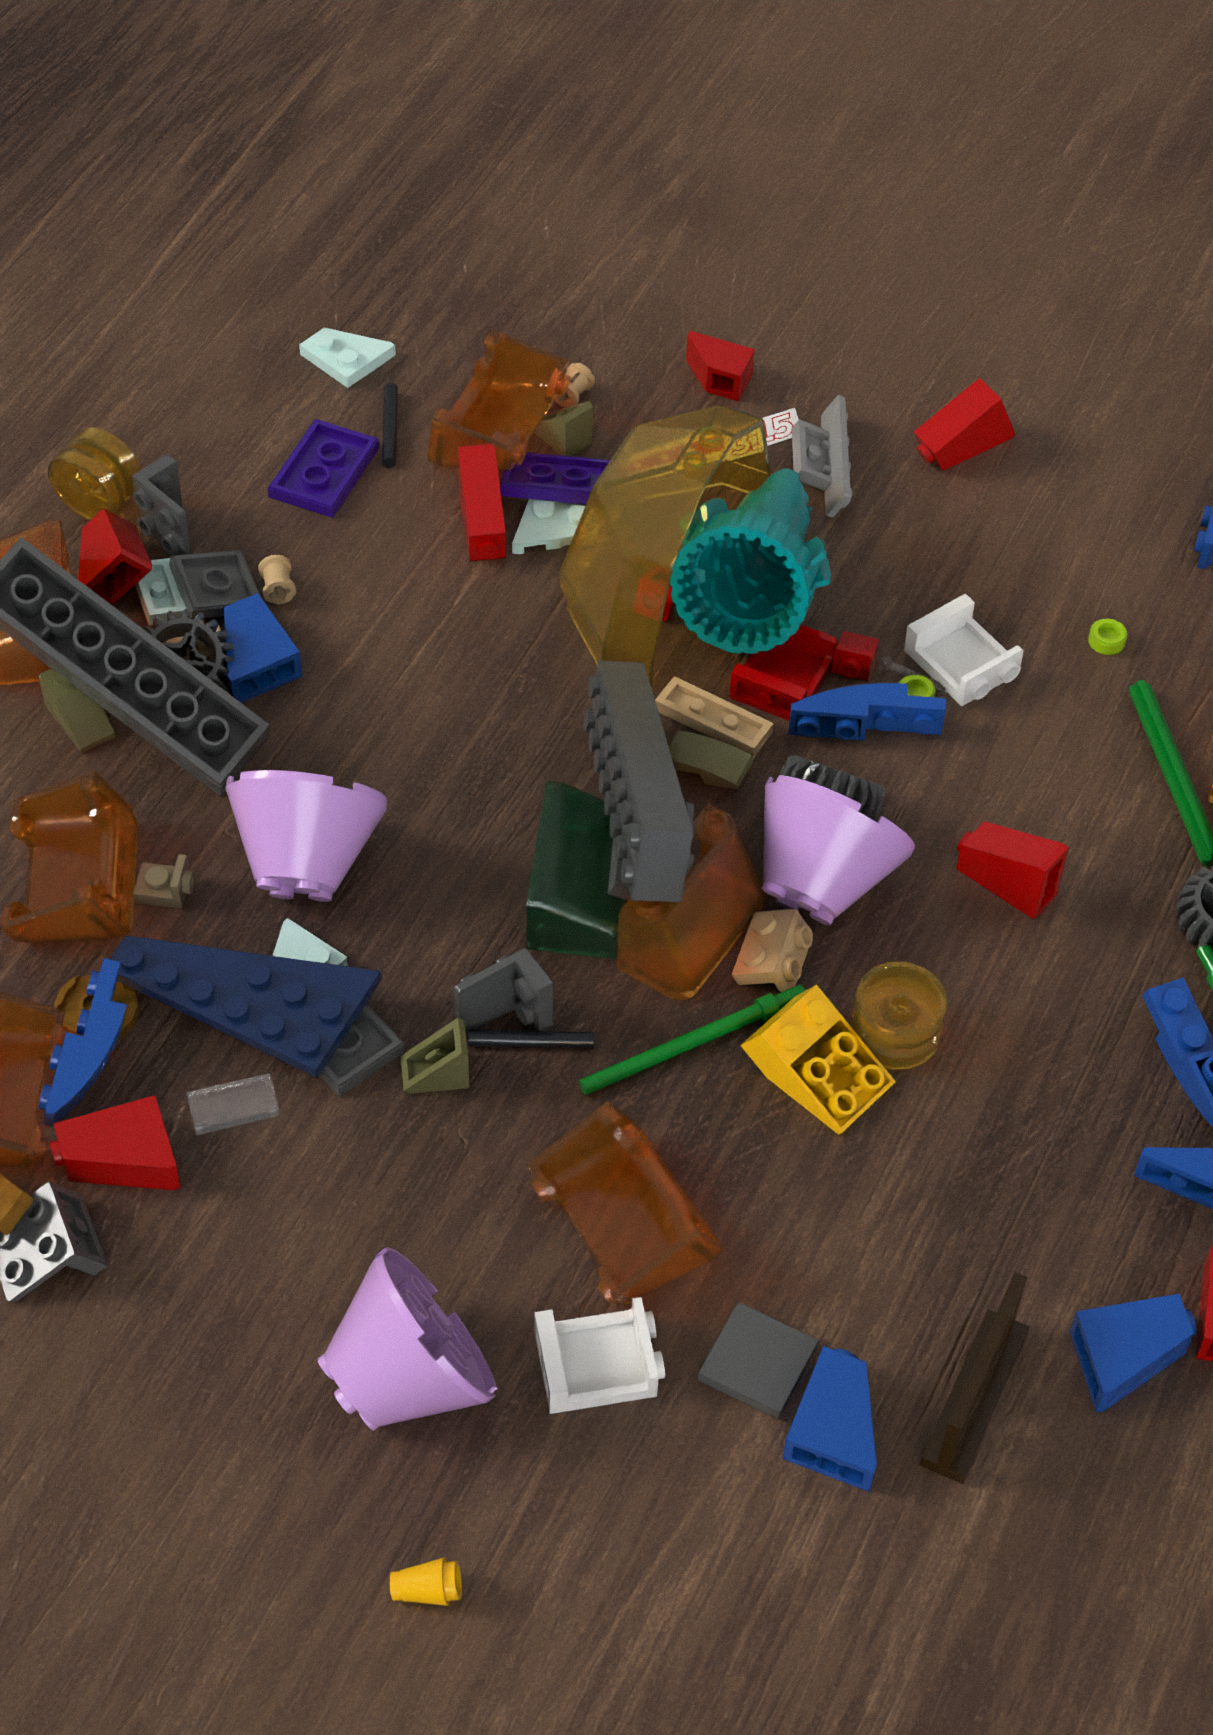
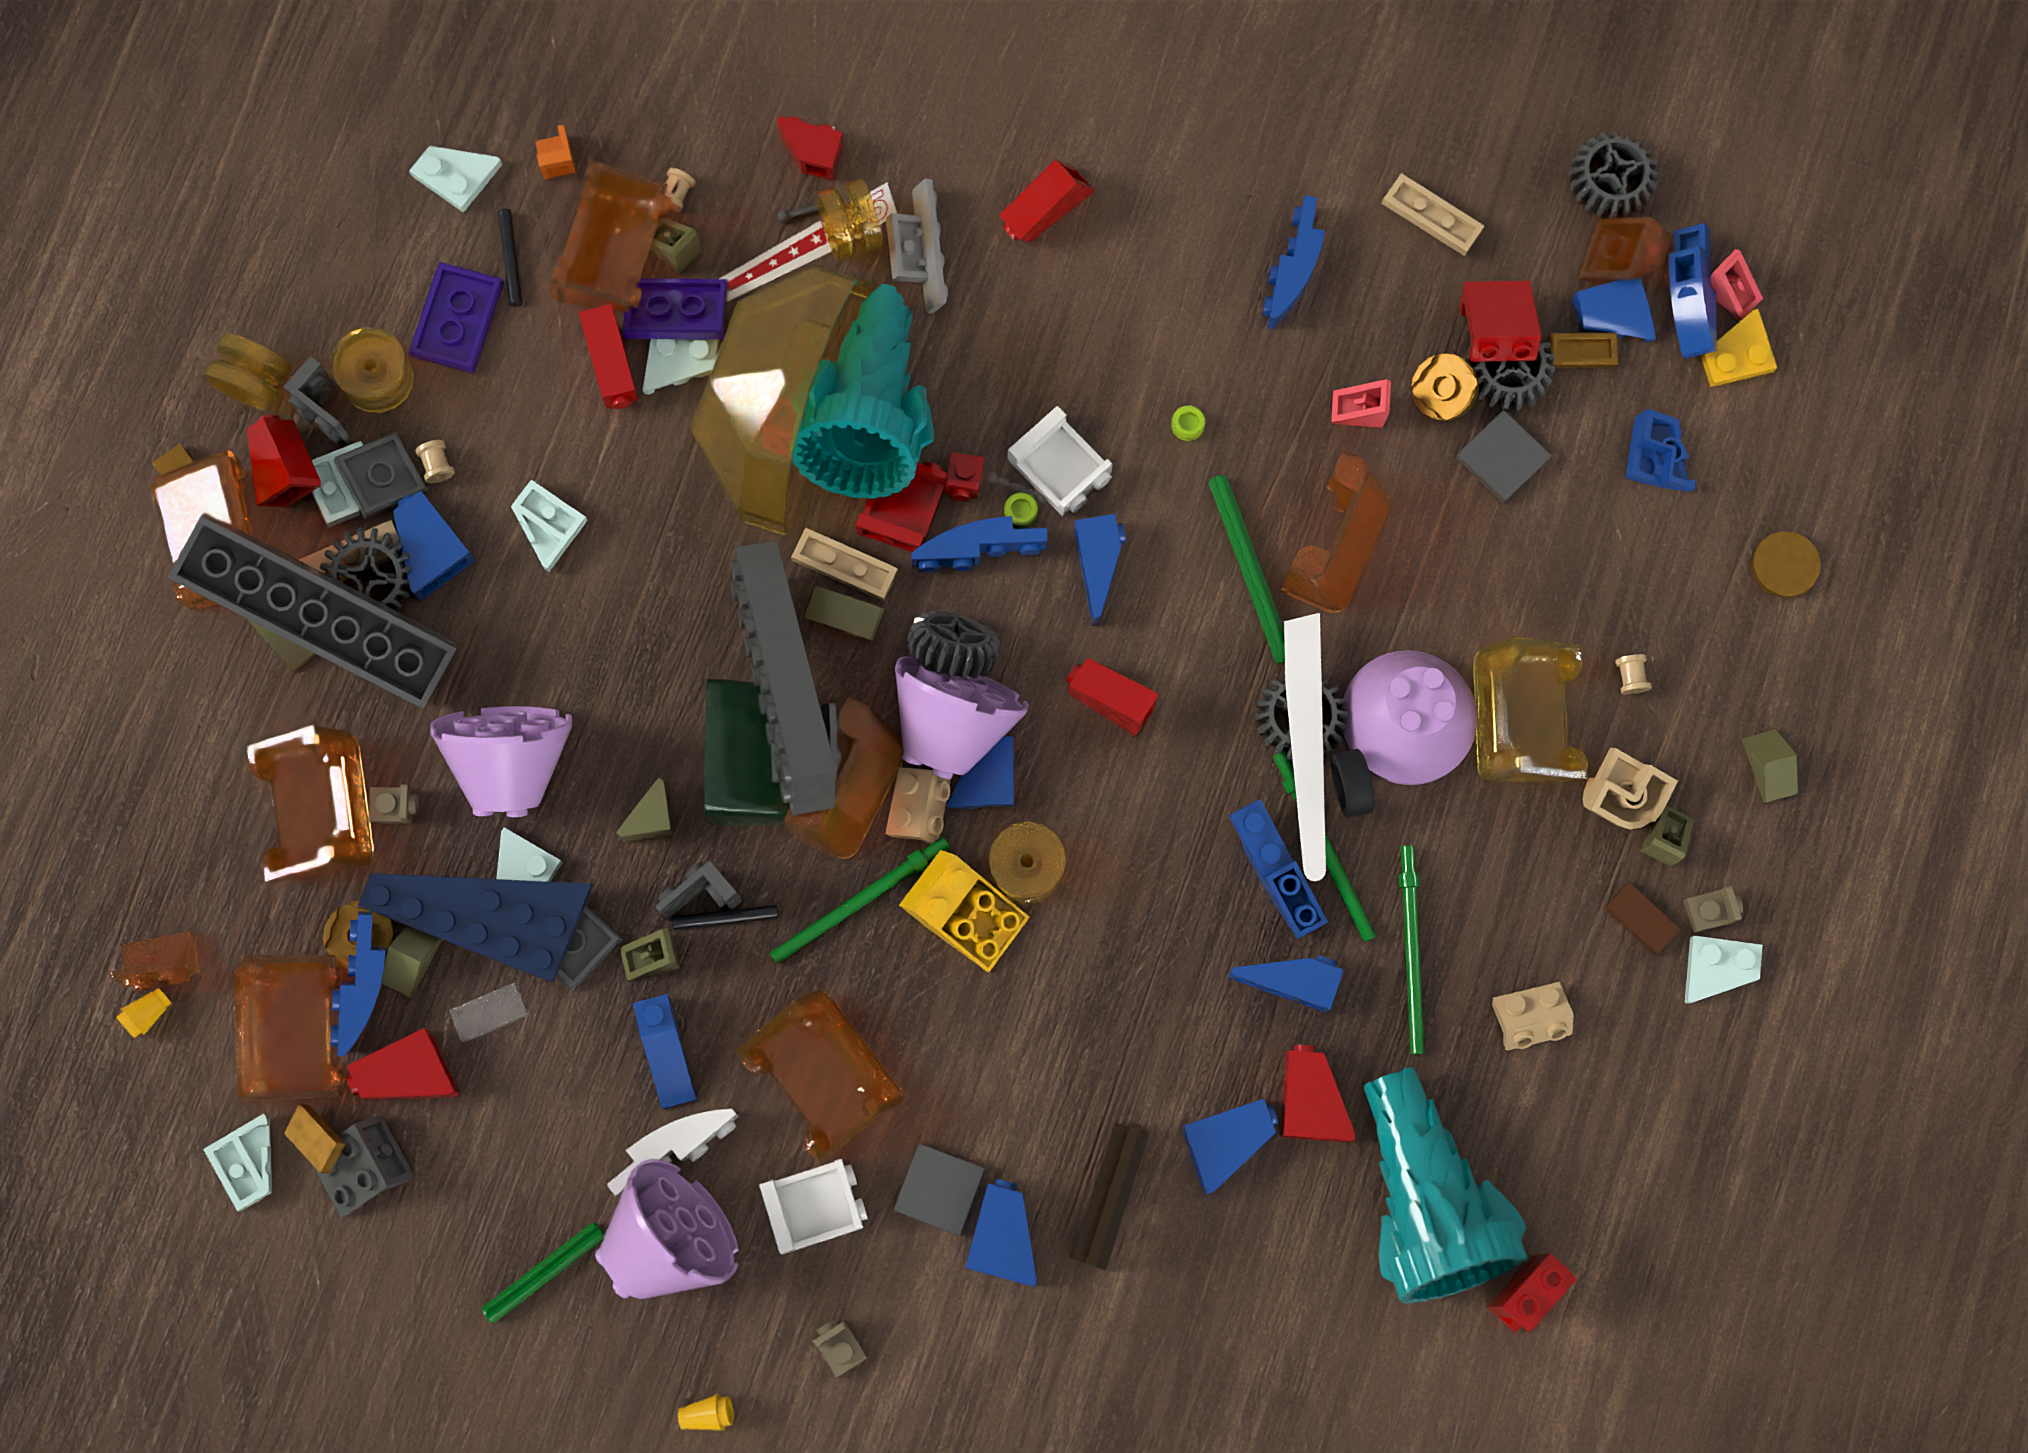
camera: 10 degrees left, 25 degrees up
(149, 1036) = (408, 960): none -> olive slope
(227, 491) = (372, 369): none -> clear yellow wheel
(242, 1393) = (543, 1272): none -> green axle
(389, 645) = (547, 522): none -> light aqua wing
(438, 1162) = (664, 1051): none -> blue slope
(453, 350) = (555, 155): none -> orange panel
(455, 926) = (650, 817): none -> olive slope
(455, 1254) = (683, 1137): none -> white slope
(610, 1524) = (839, 1347): none -> dark tan bracket
(764, 400) = (850, 219): none -> clear yellow wheel
(856, 934) = (988, 782): none -> blue slope
(1001, 734) = (1098, 551): none -> blue slope

